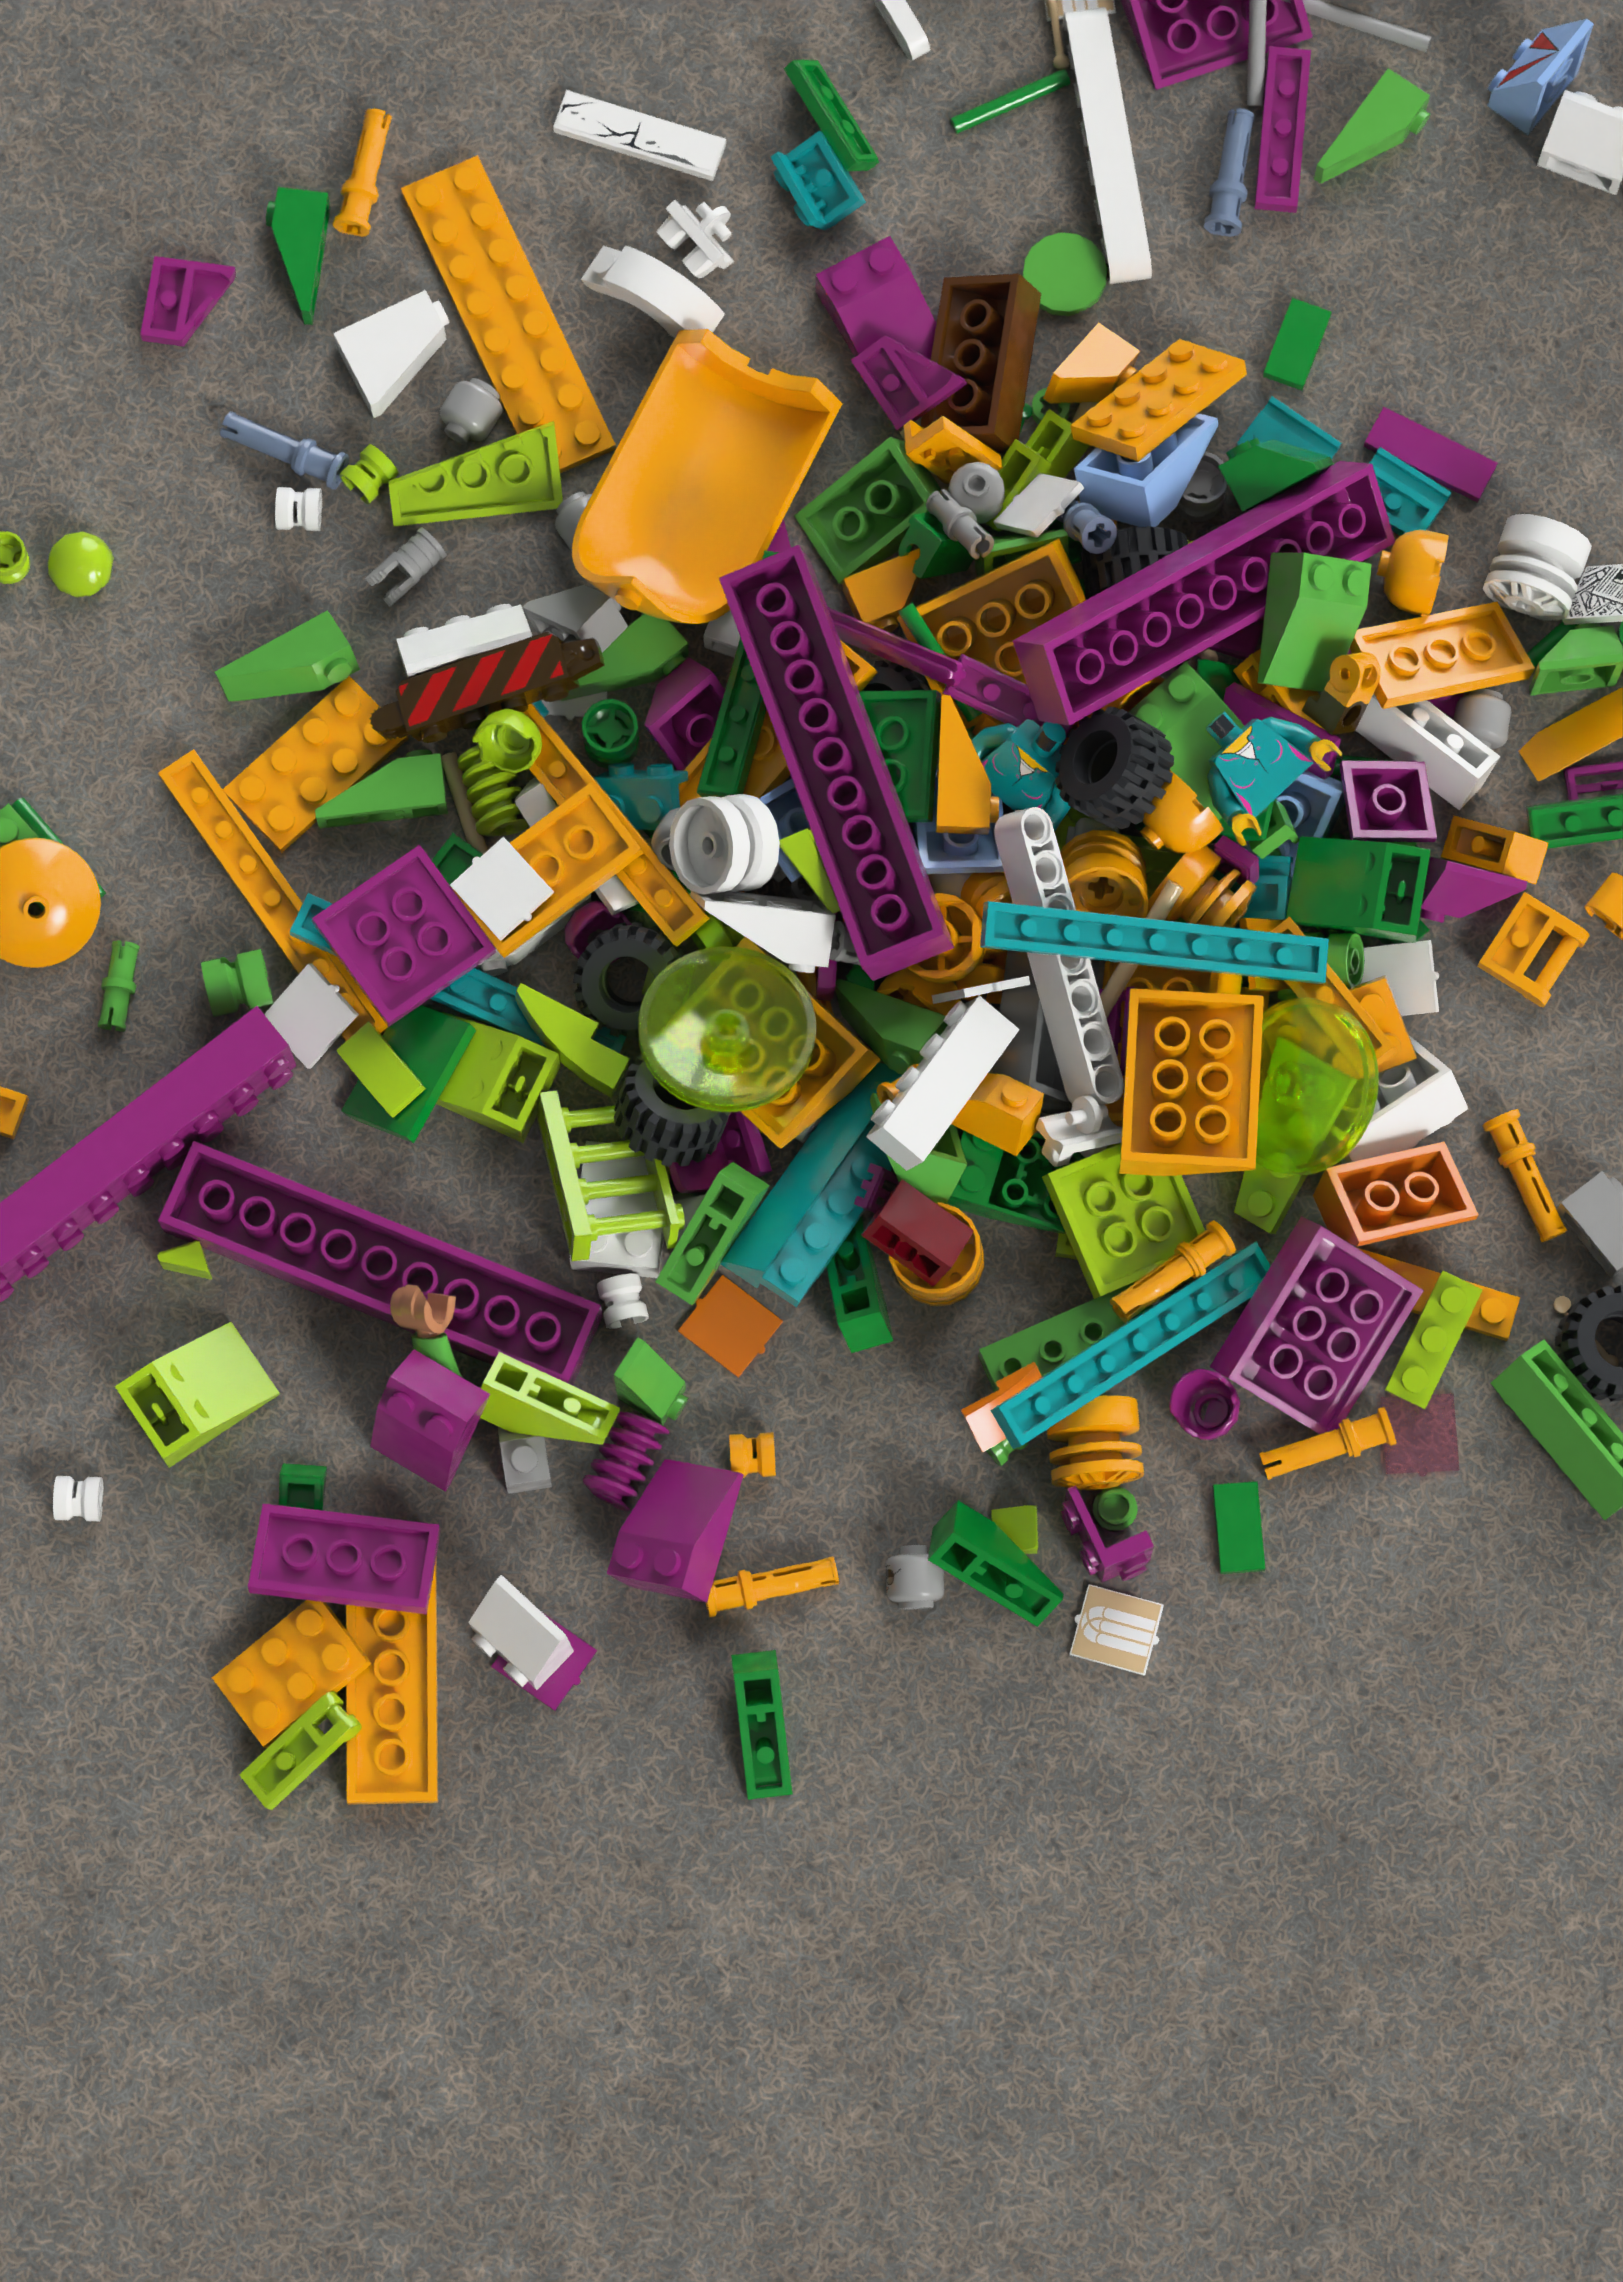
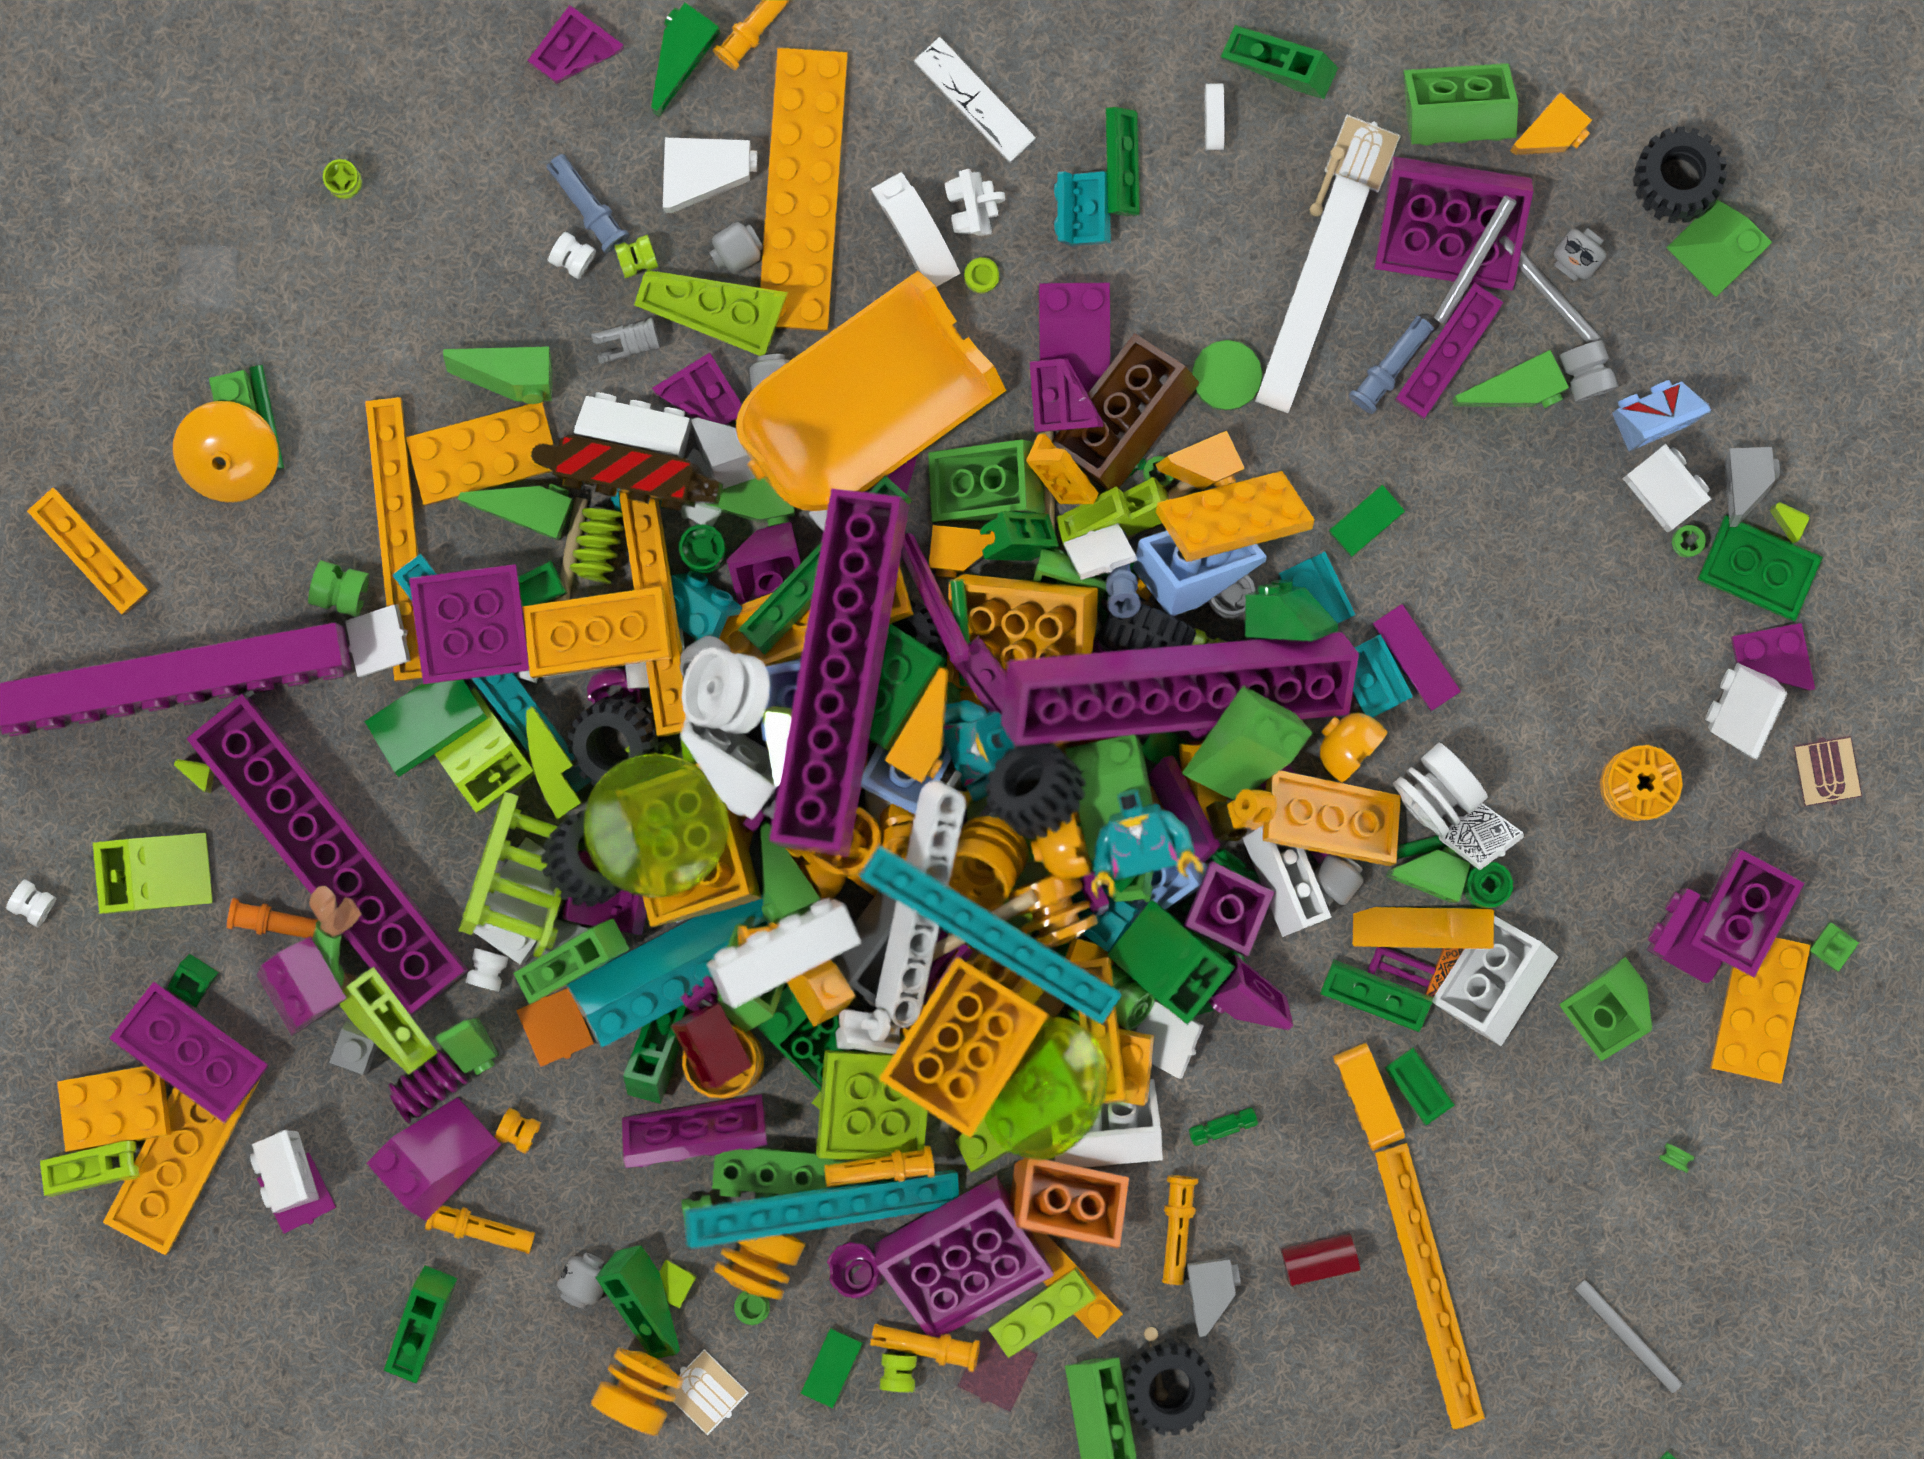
camera: 30 degrees right, 10 degrees up
(80, 564) = (394, 211): lime hair -> none
(118, 986) = (255, 543): bright green pin -> none
(347, 1379) = (264, 919): none -> orange pin
(380, 1069) = (403, 711): lime slope -> none
(502, 888) = (556, 629): white piece -> none
(509, 740) = (621, 521): lime hair -> none
(516, 575) = (701, 392): none -> magenta wing
(534, 802) = (619, 574): white slope -> none
(748, 307) = (981, 275): none -> lime tile
(947, 1347) = (693, 1131): none -> magenta plate
(960, 524) = (1032, 537): light grey pin -> none
(978, 1415) = (720, 1192): orange slope -> none
(979, 489) = (1062, 515): light grey head -> none
(982, 989) = (853, 894): white piece -> none
(1010, 101) = (1261, 219): green bar -> none
(1043, 1658) = (637, 1391): none -> light orange wheel
(1122, 1559) = (734, 1351): magenta bracket -> none
(1314, 1489) = (898, 1380): none -> lime wheel
(1435, 68) = (1588, 369): none -> light grey wheel
(1494, 849) = (1291, 981): light orange slope -> none
(1511, 1043) = (1223, 1126): none -> green axle
(1521, 941) = (1273, 1056): light orange plate -> none

